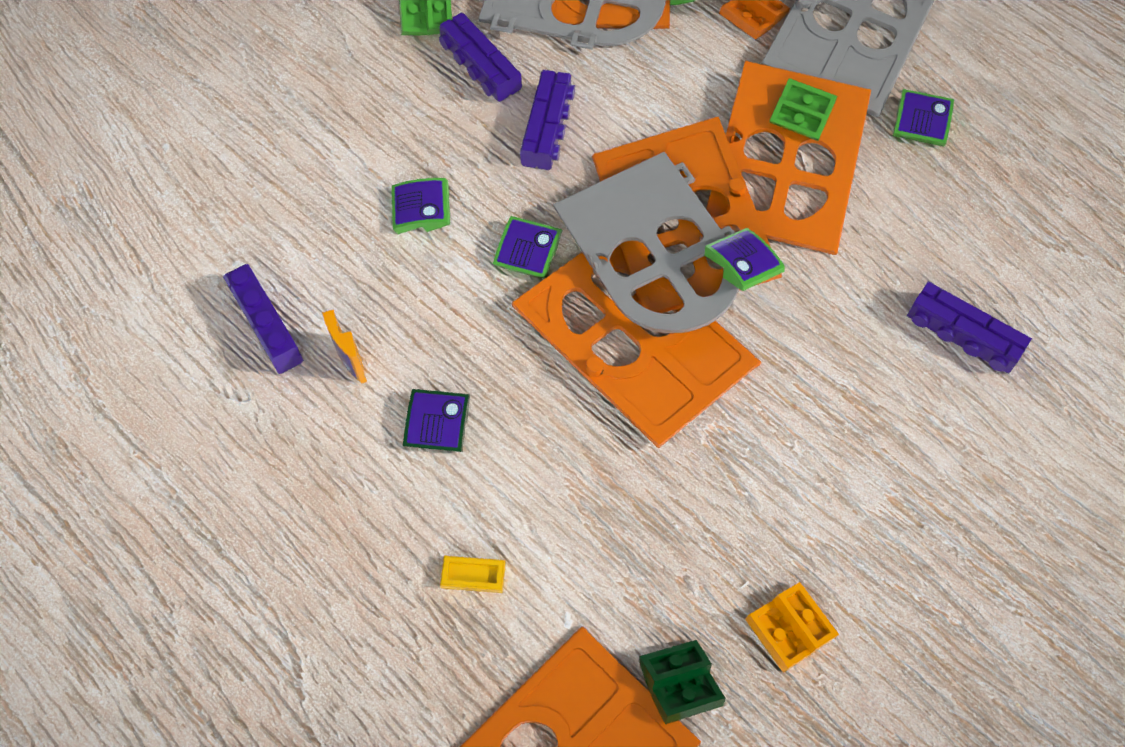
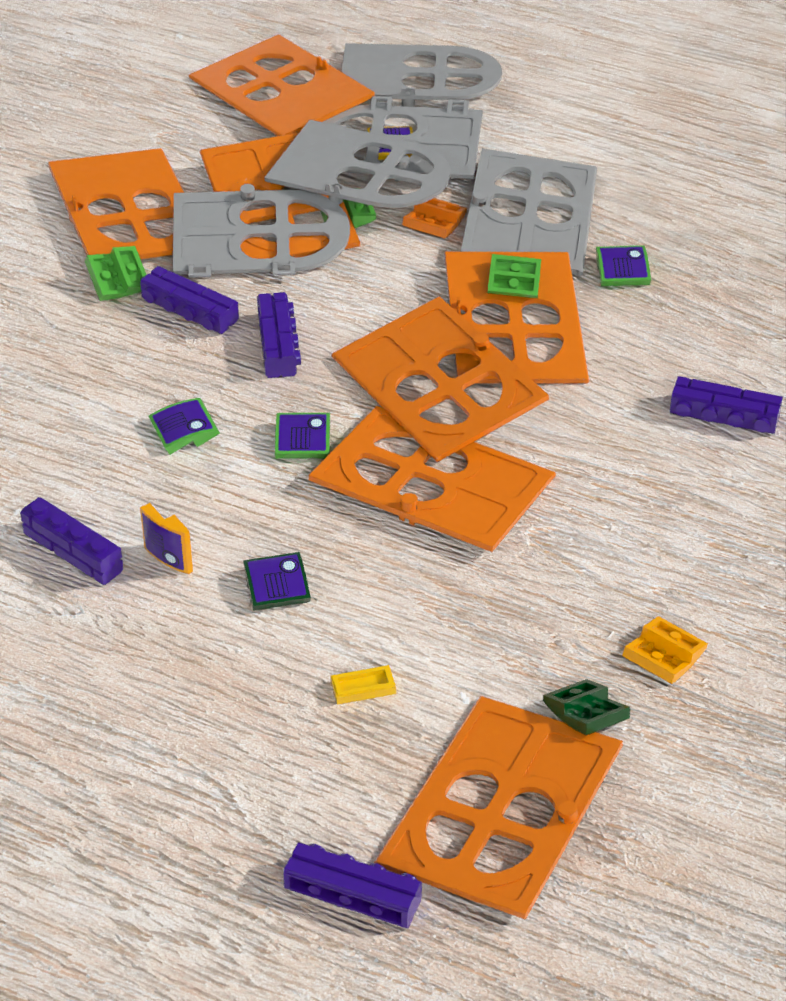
camera: 20 degrees left, 20 degrees down
(633, 209) = (396, 376): light grey door -> none
(745, 259) = (512, 385): slope -> none

